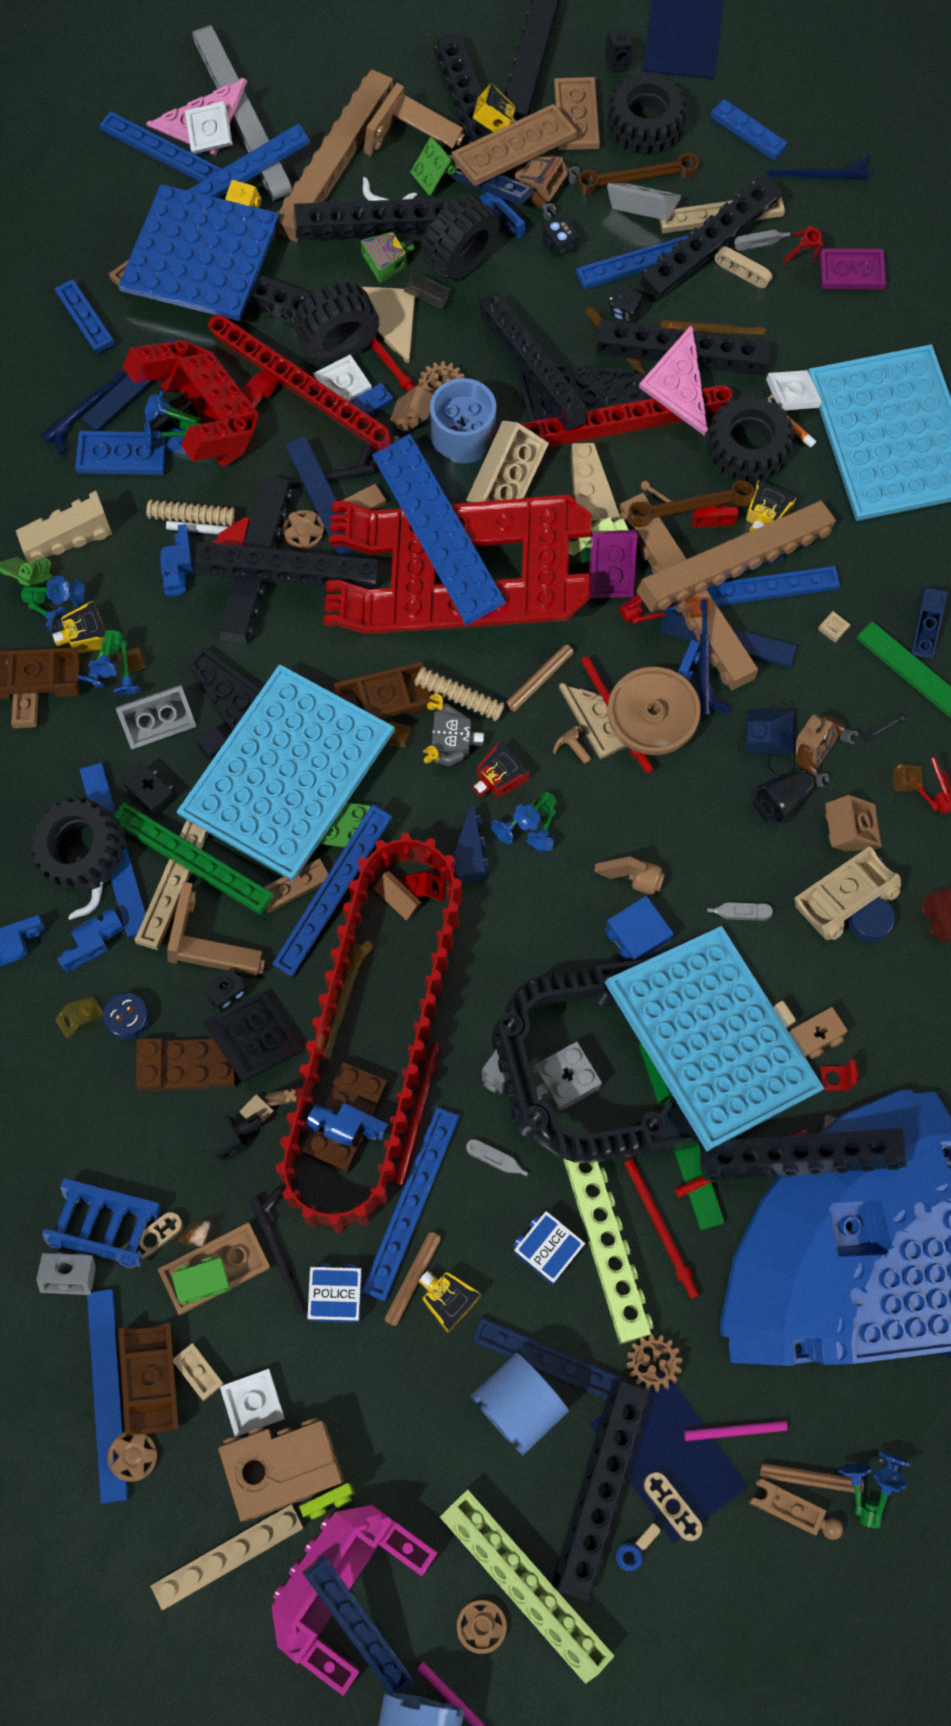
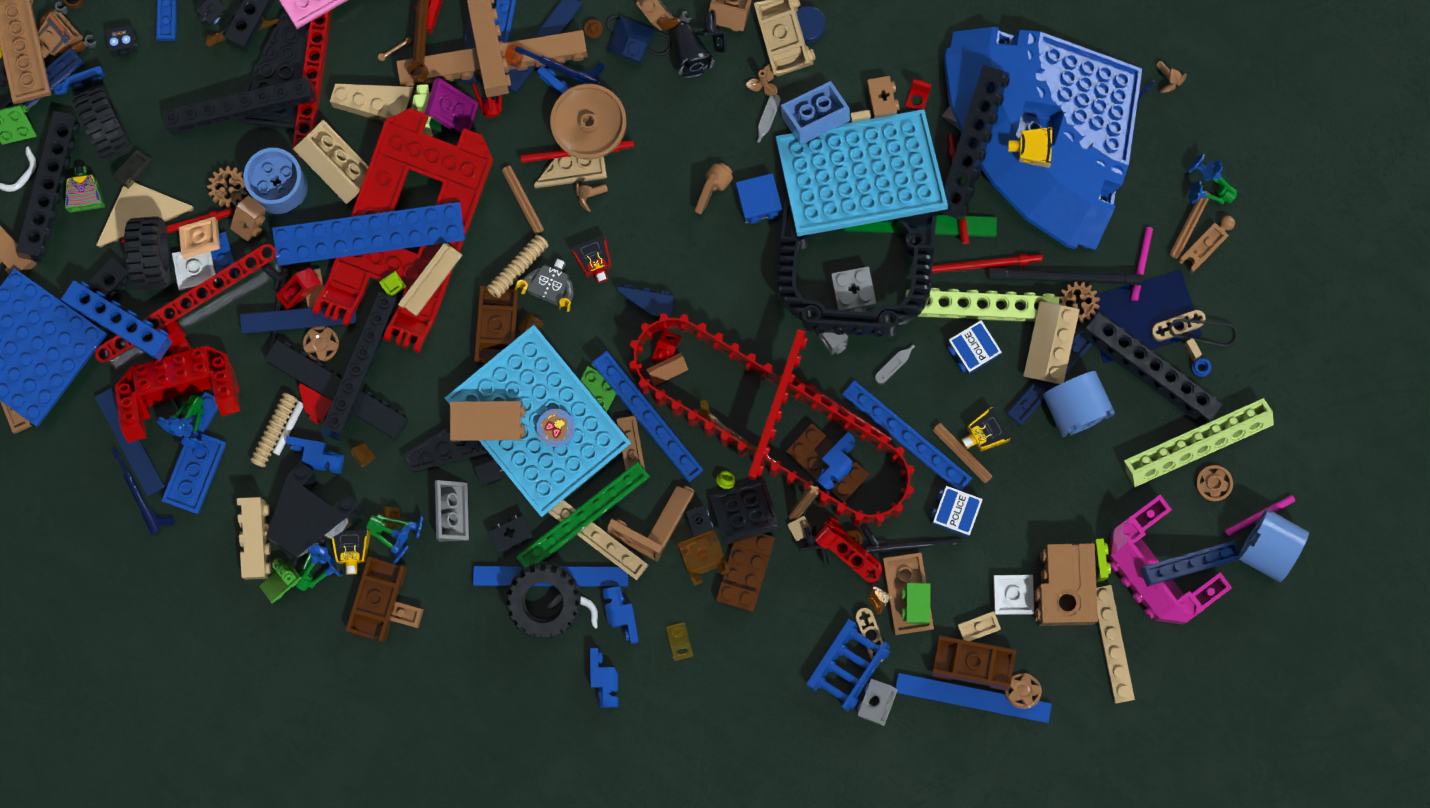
camera: 70 degrees left, 10 degrees up
(84, 316) = (46, 466): blue plate -> none
(96, 567) = (305, 518): none -> black wedge
(126, 1016) = (692, 604): dark blue head -> none
(185, 1005) = (702, 555): none -> clear orange panel
(192, 609) = (362, 455): none -> clear orange slope
(252, 1152) = (832, 534): none -> red piece
(254, 319) = (155, 347): none -> blue brick
(263, 1178) = (856, 535): none -> reddish brown tile
(264, 713) = (486, 421): none -> medium nougat panel
(281, 789) = (555, 428): none -> tile
(287, 1005) = (725, 480): none -> lime plate
(354, 482) = (298, 288): none -> red slope
(374, 371) = (199, 237): none -> light nougat plate
(391, 572) = (392, 284): none -> lime tile
(394, 1021) = (775, 412): none -> red plate
(409, 604) = (430, 279): none -> tan fence
(528, 818) = (645, 249): blue plant -> none
(586, 1342) = (1051, 342): none -> tan slope
(688, 1543) = (1204, 322): none -> black piece
(706, 1414) = (1126, 279): none -> black piece
(766, 687) = (593, 29): none -> reddish brown tile
(766, 959) = (815, 112): none -> medium blue brick
(782, 890) = (765, 76): none -> medium nougat plant
(817, 808) = (710, 29): none -> black bracket
(825, 1228) = (1033, 147): none -> yellow torso

